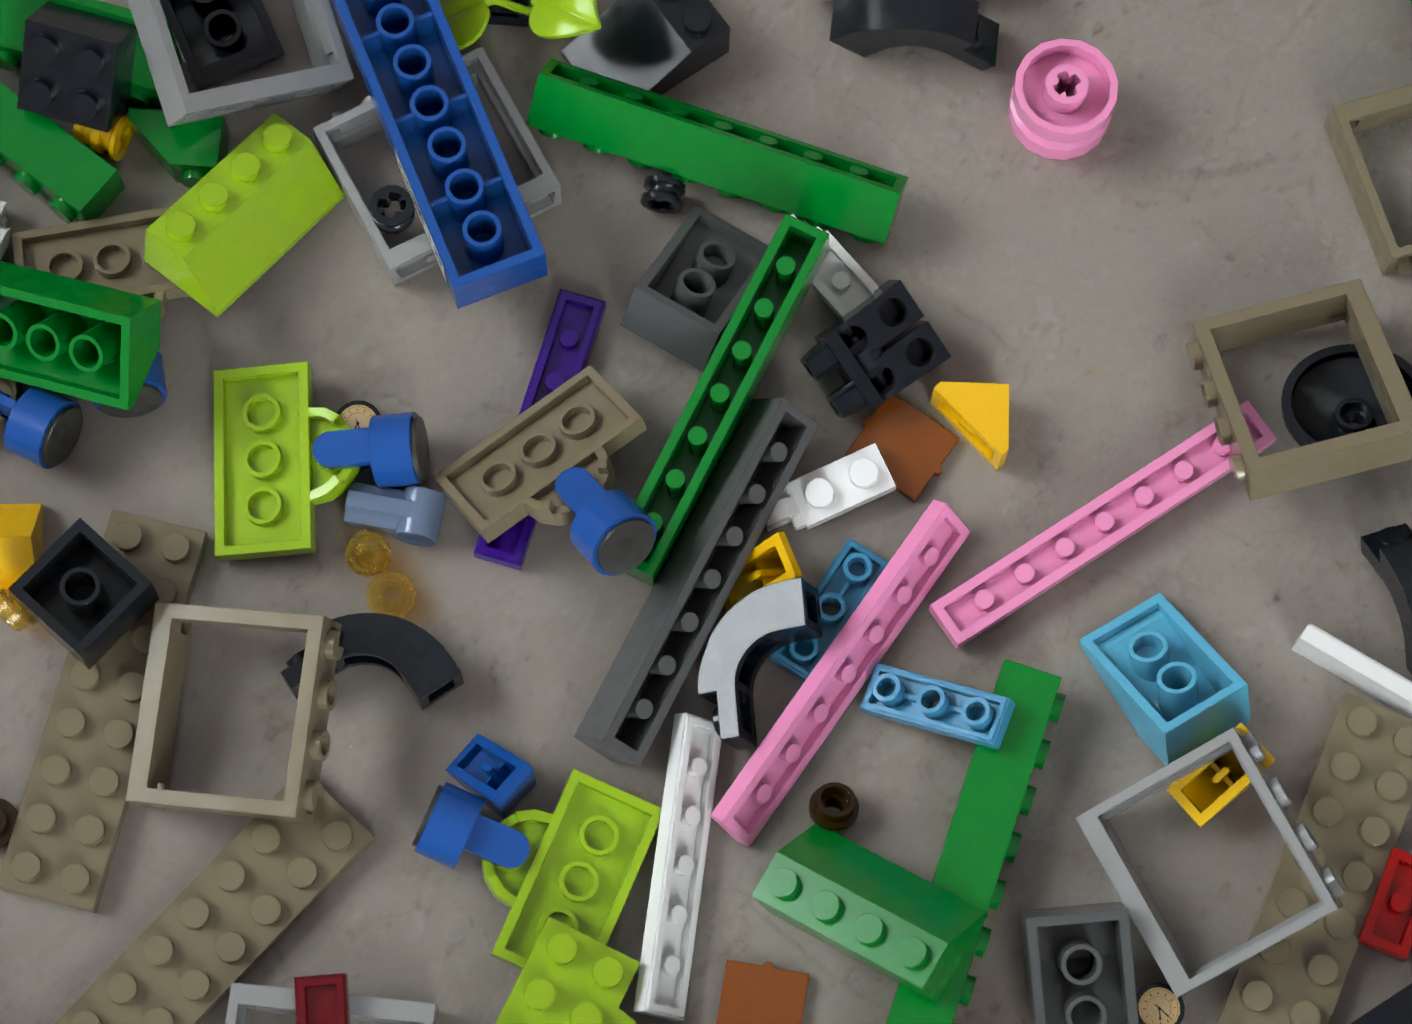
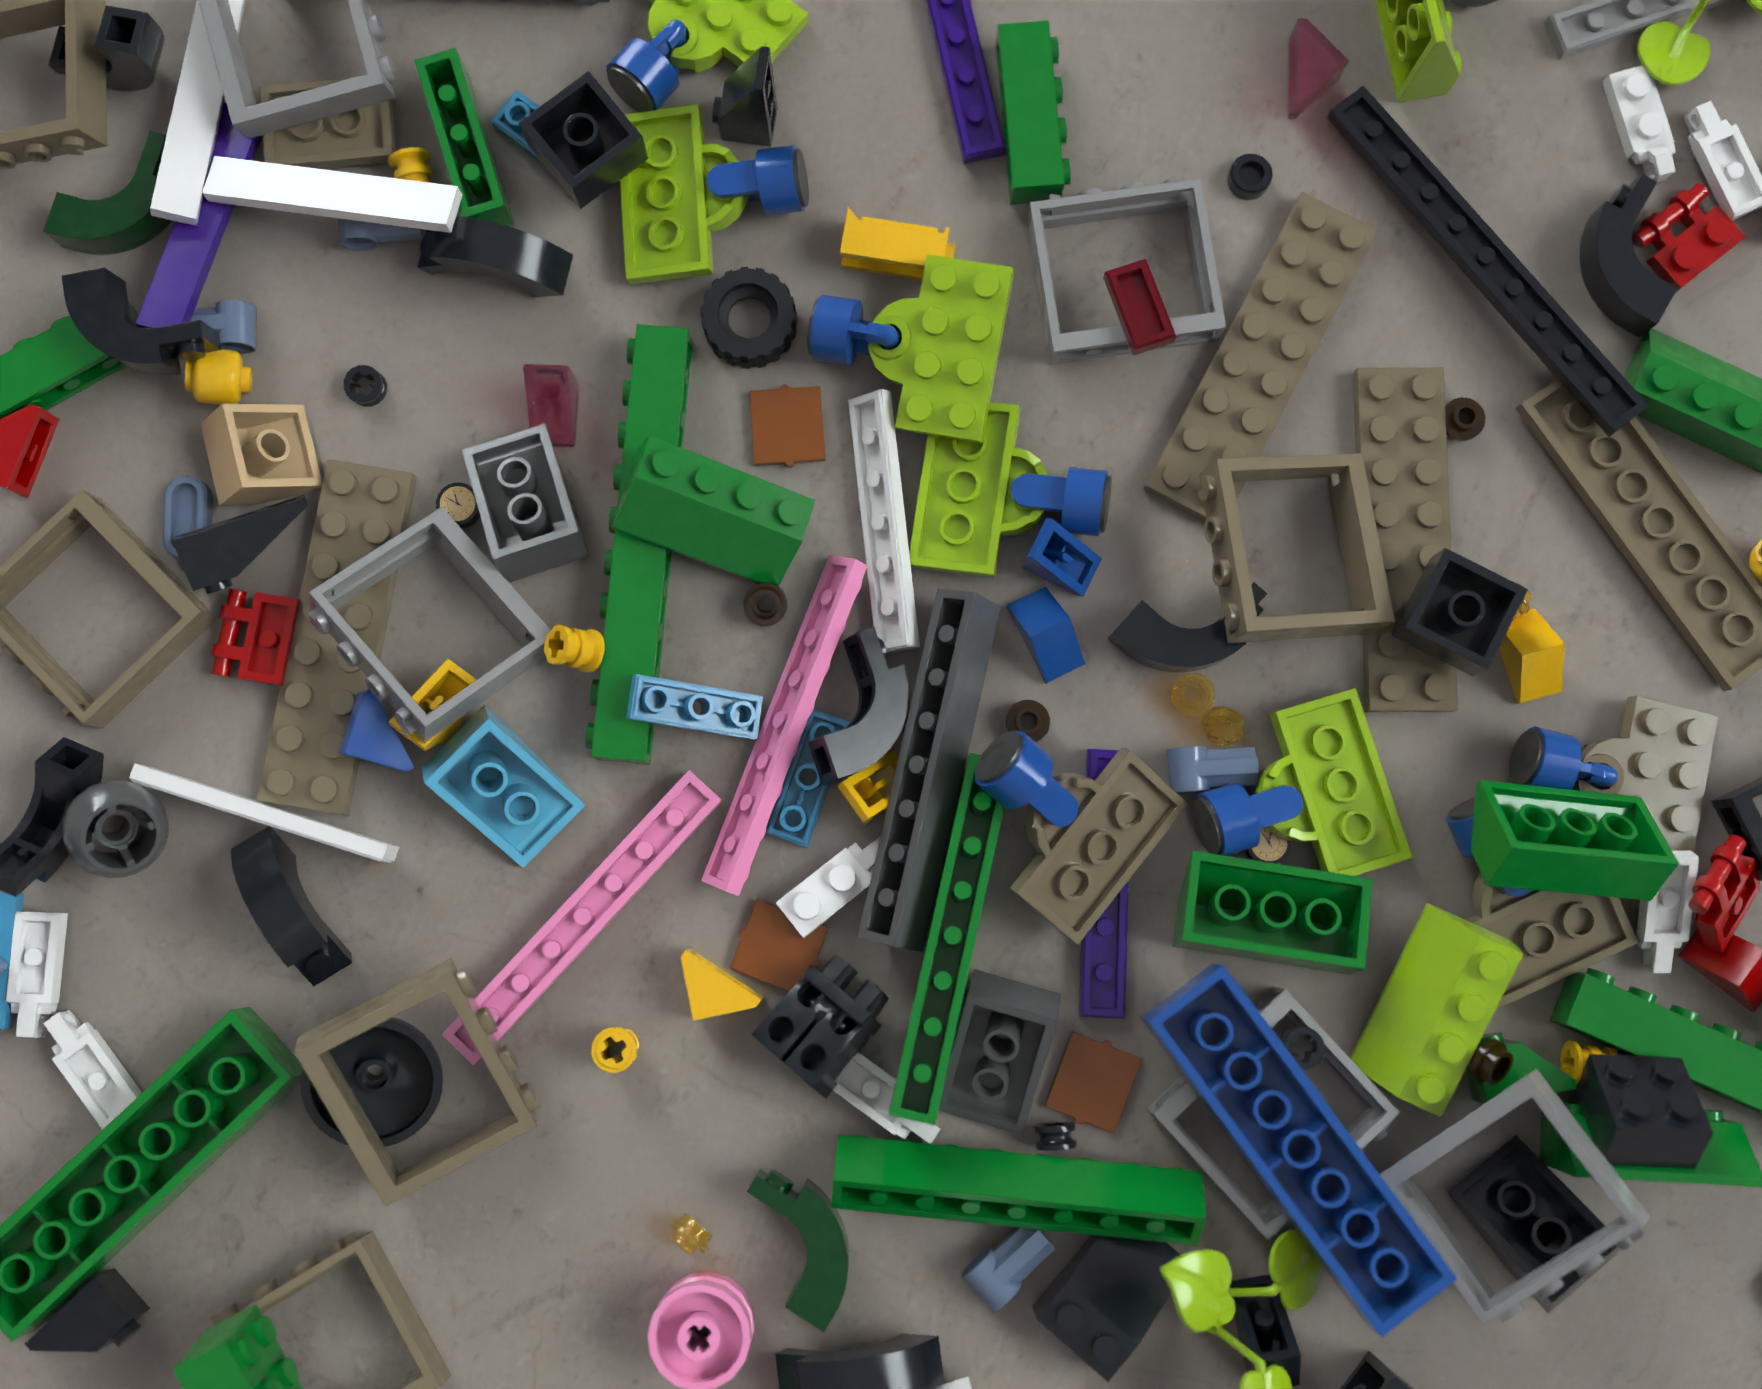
camera: 170 degrees right, 10 degrees up
(208, 147) = (1491, 1062): none -> dark brown plate
(379, 344) = (1274, 913): none -> green slope
(531, 702) = (1047, 634): none -> blue slope
(582, 624) = (1030, 707): none -> dark brown plate
(609, 239) = (1093, 1082): none -> dark orange piece
(753, 84) = (999, 1271): none -> sand blue piece
(930, 120) = (824, 1278): none -> dark green arch
(1055, 797) = (574, 648): none -> yellow bush
(1056, 190) = (690, 1235): none -> clear yellow plate
(1102, 370) = (603, 1042): none -> yellow bush
(1301, 757) = (371, 737): none -> blue slope

